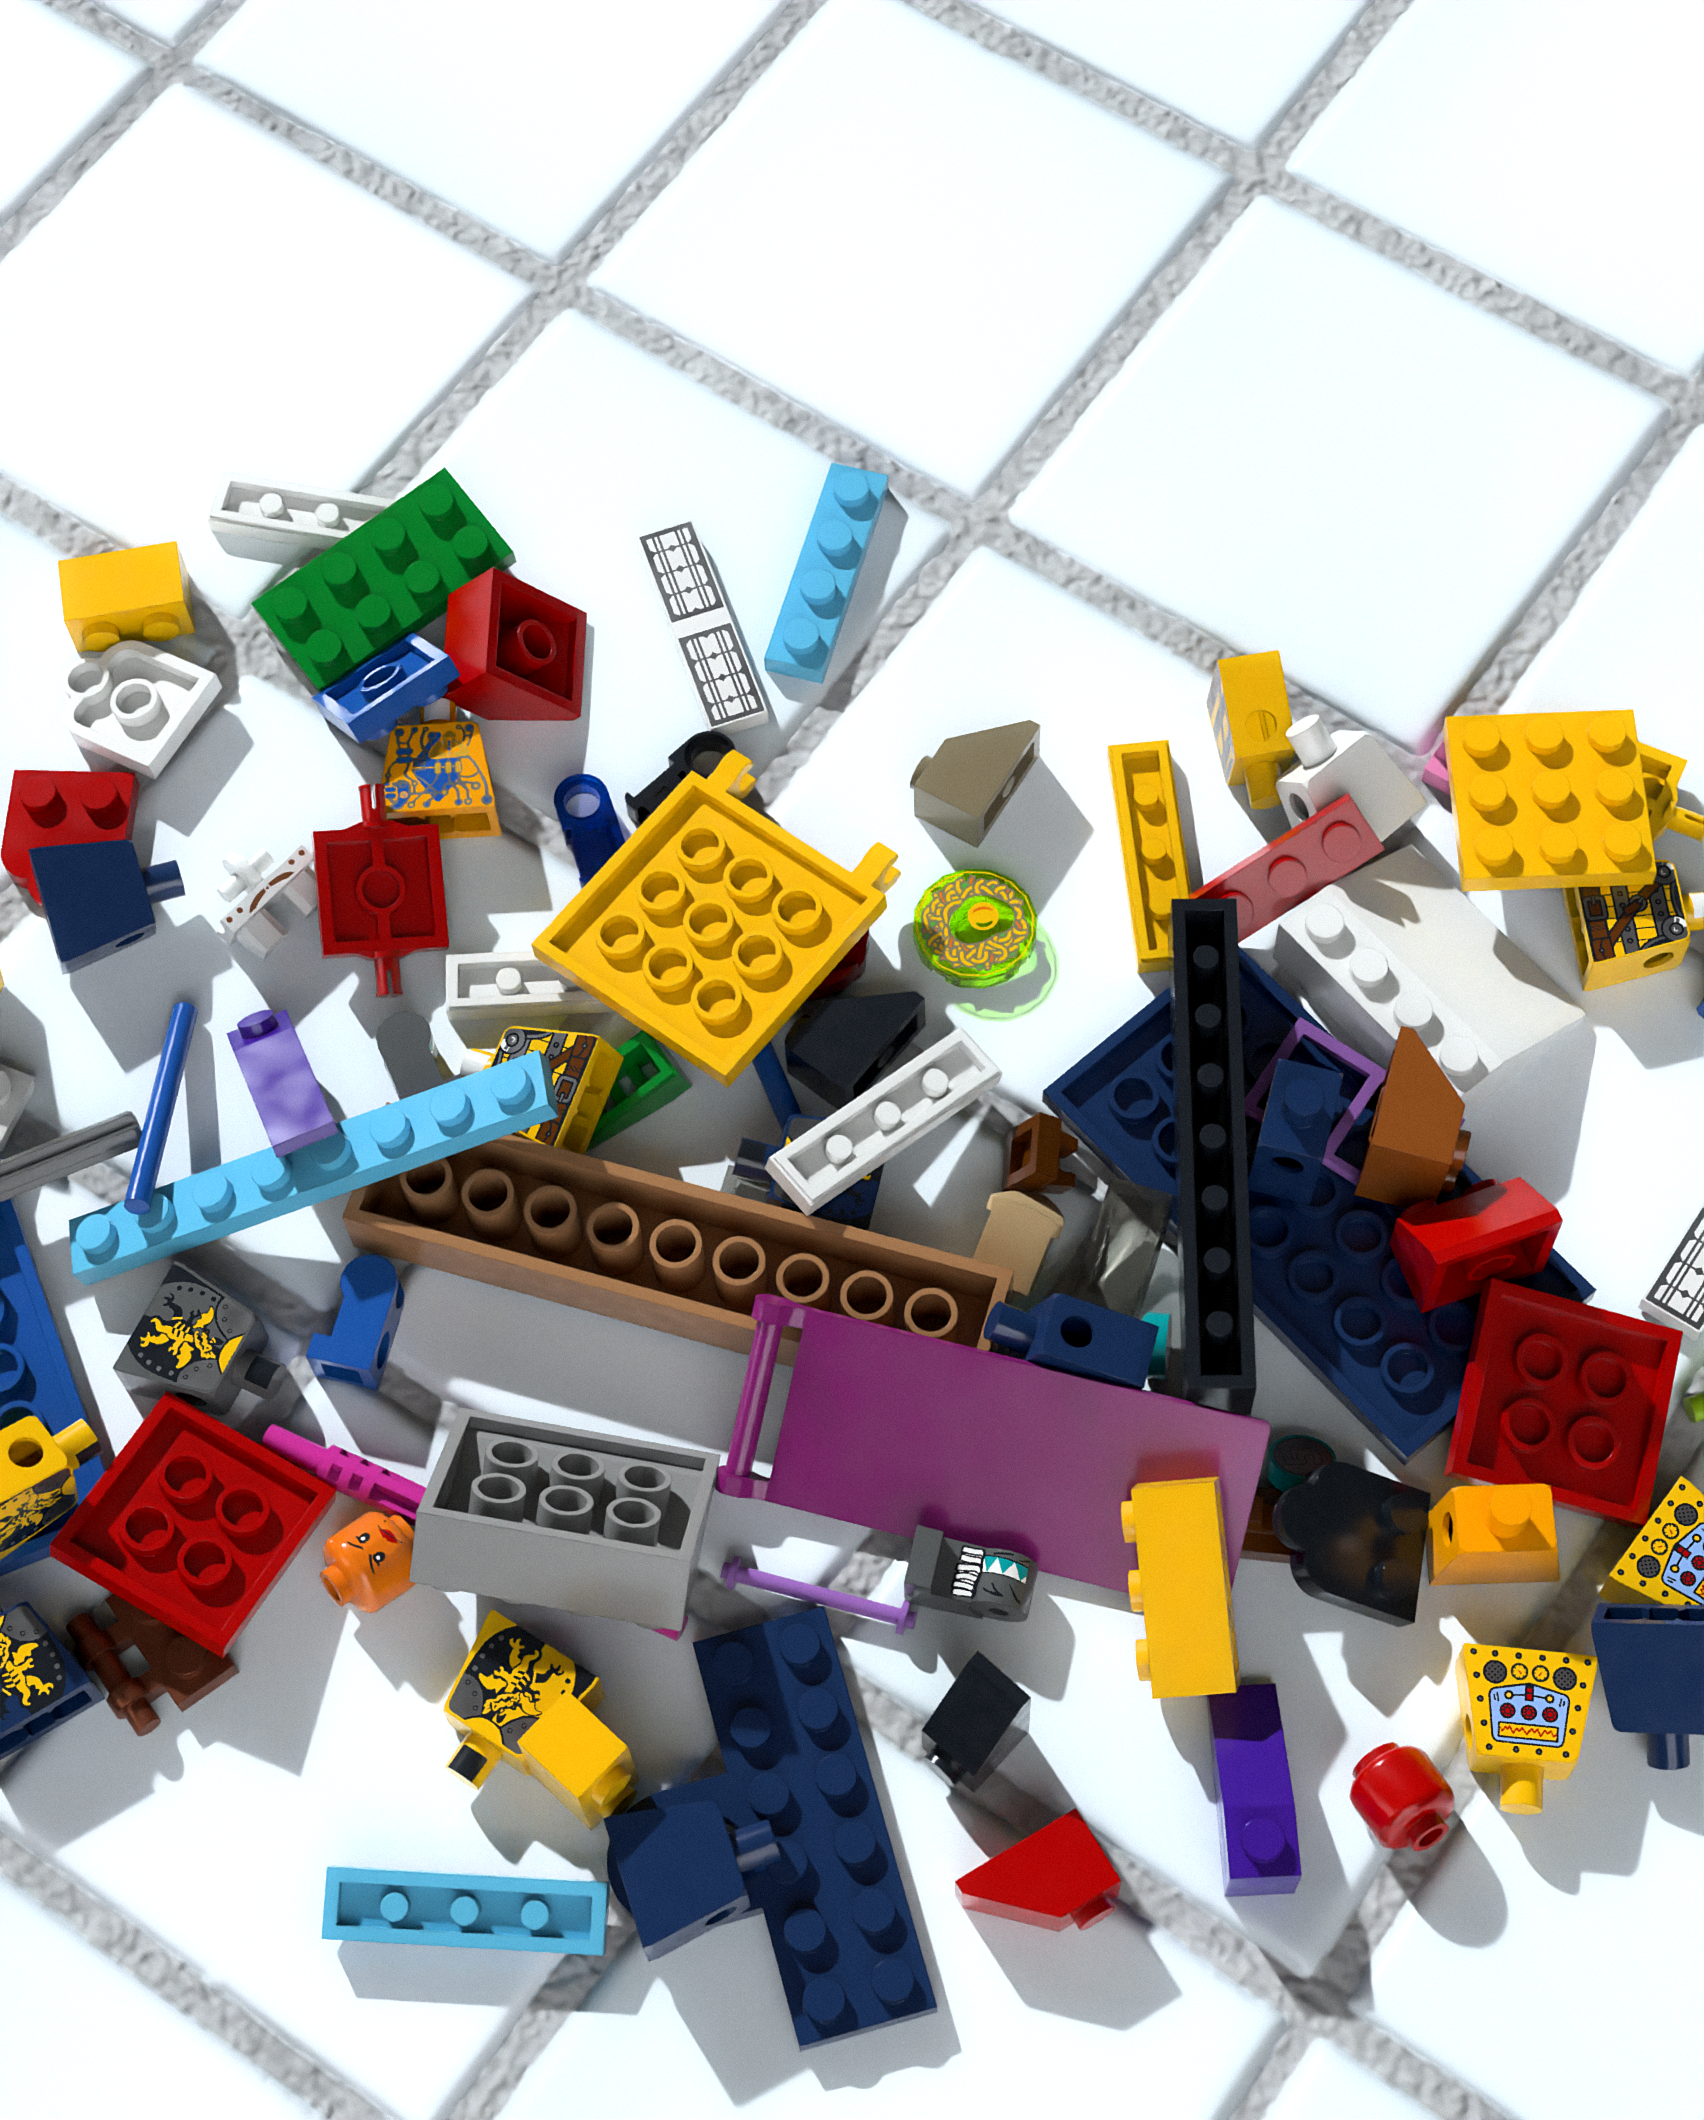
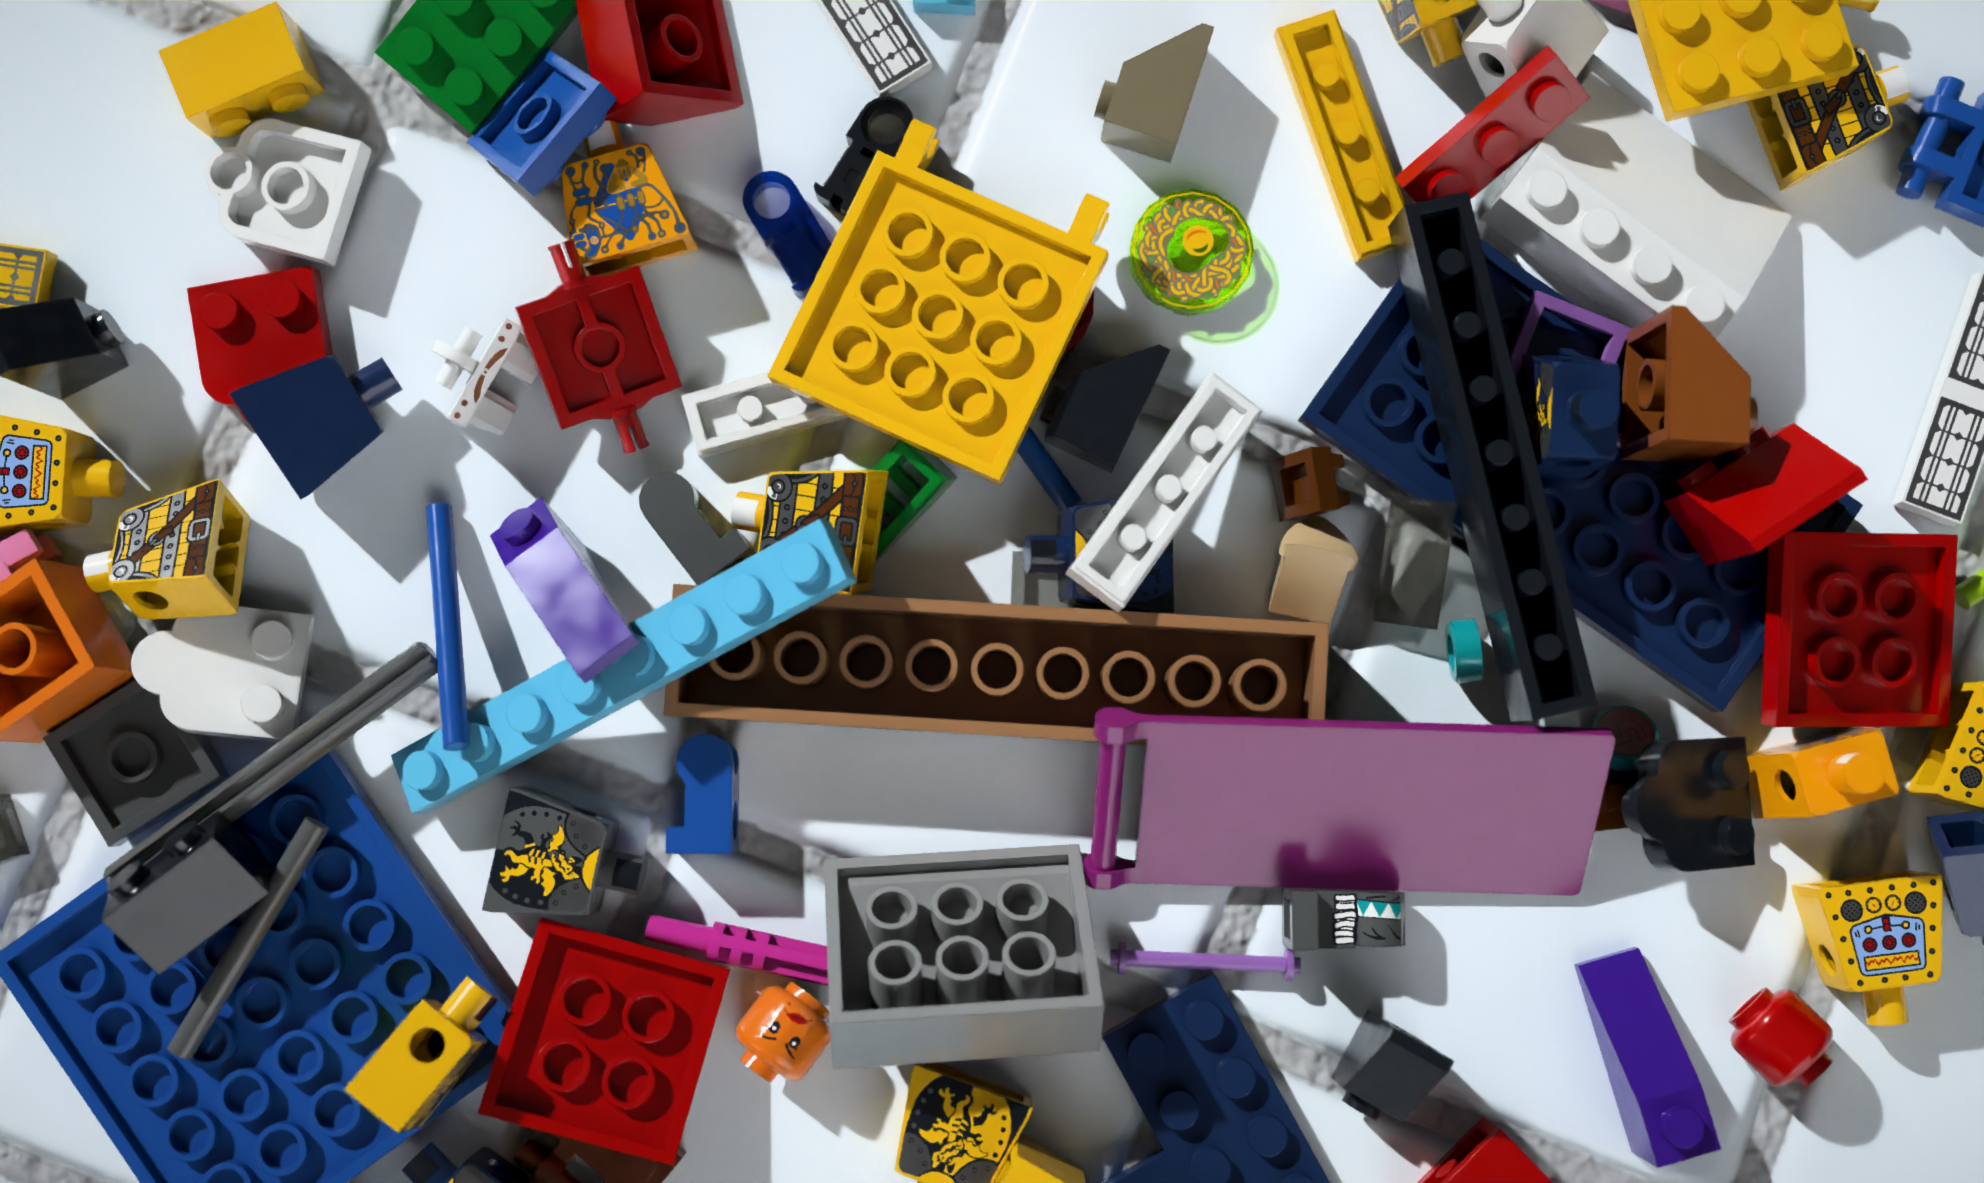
camera: 20 degrees left, 20 degrees up
(1076, 1338) = (1385, 688): dark blue torso -> none
(1182, 1588) = (1553, 897): yellow brick -> none

